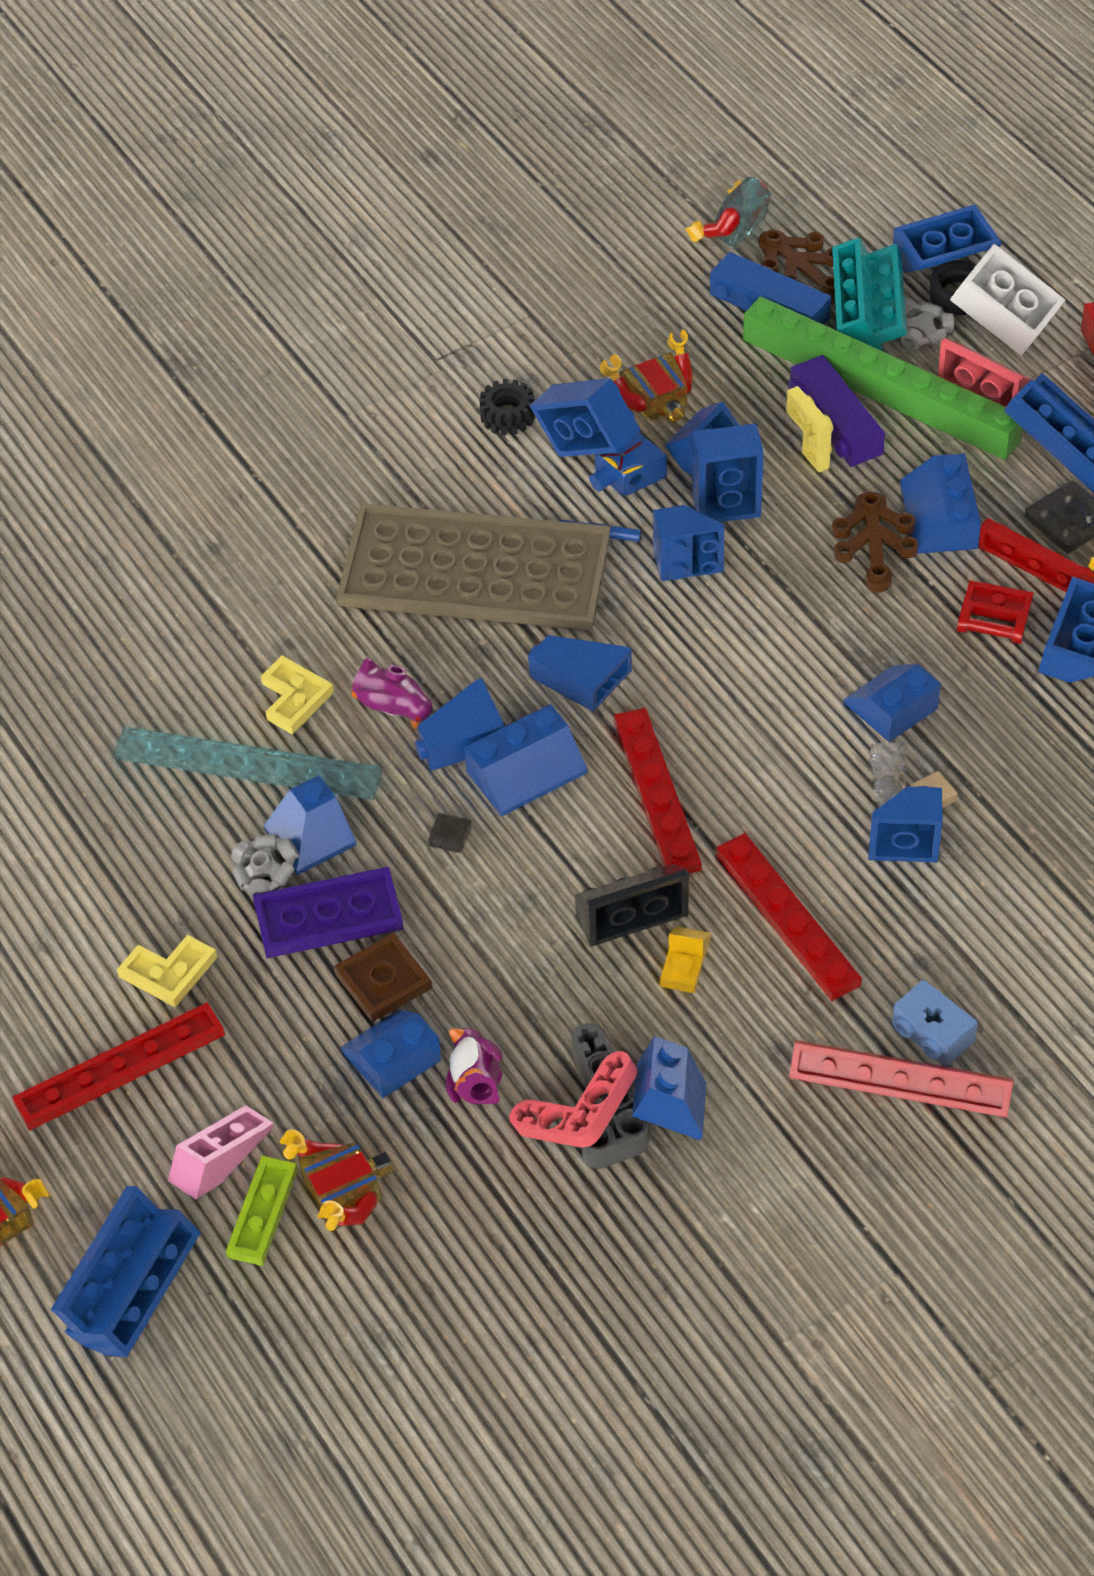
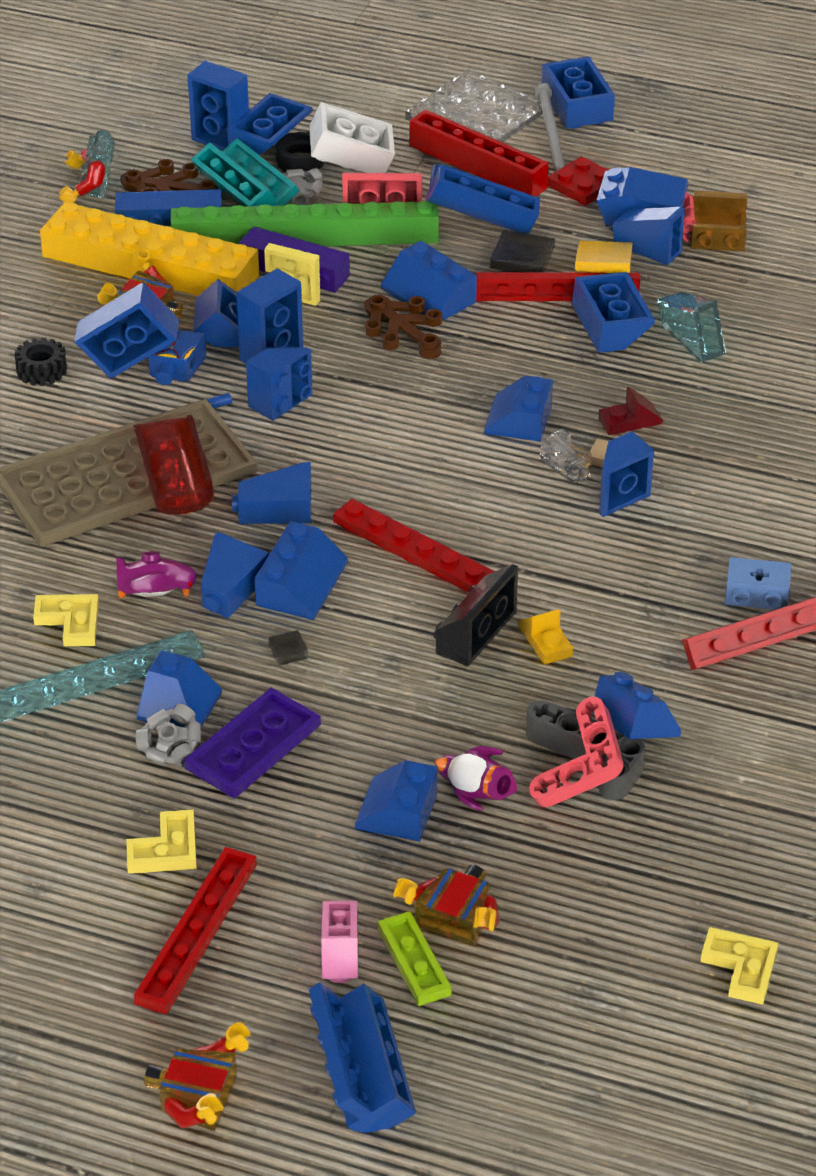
camera: 40 degrees left, 10 degrees down
(382, 977) = (341, 761): reddish brown plate -> none
(499, 586) = (175, 465): none -> clear red container
(540, 1408) = (747, 956): none -> light yellow plate
(719, 345) = (181, 257): none -> yellow brick
(788, 917) = (589, 575): red plate -> none
(905, 188) = (215, 102): none -> blue brick
(995, 603) = (529, 324): red plate -> none
(1005, 763) = (633, 415): none -> dark red slope

